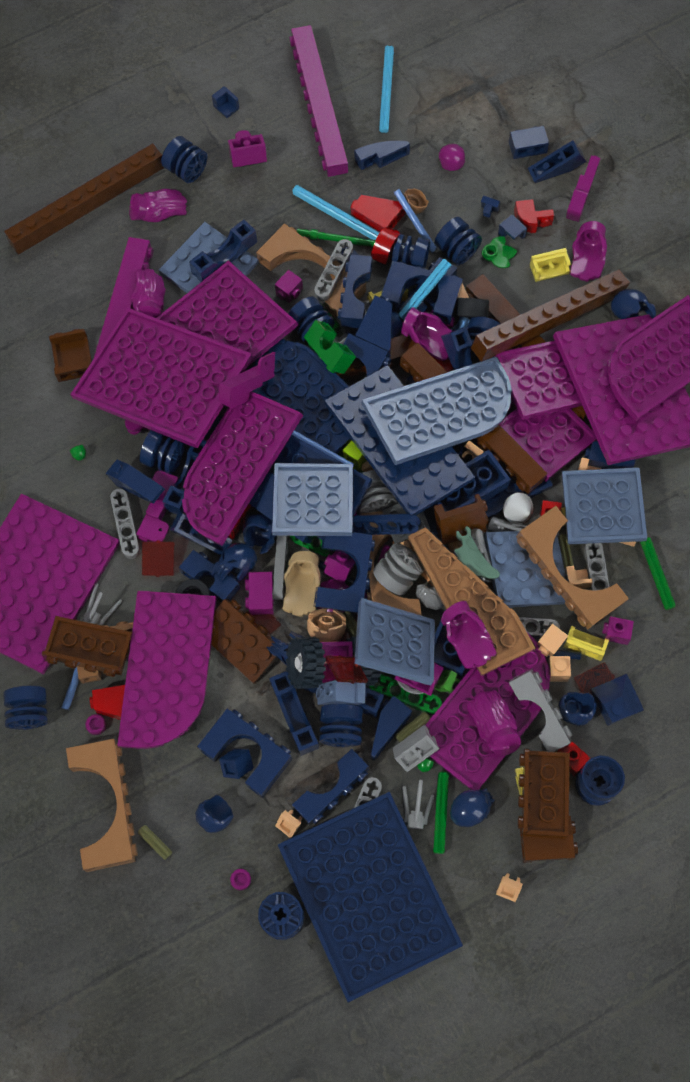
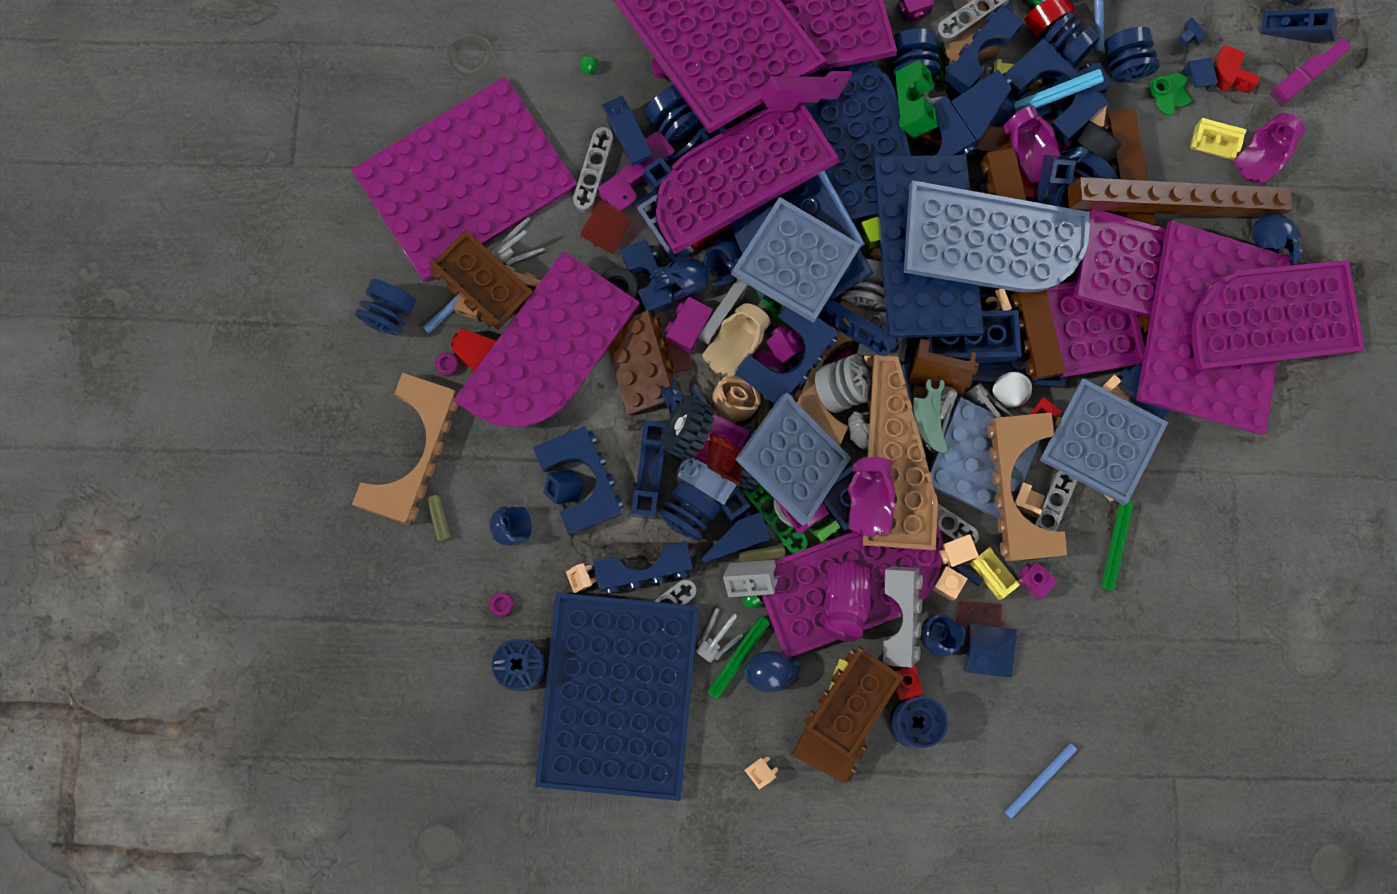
camera: 25 degrees right, 10 degrees up
(565, 550) = (1033, 465): olive axle -> none

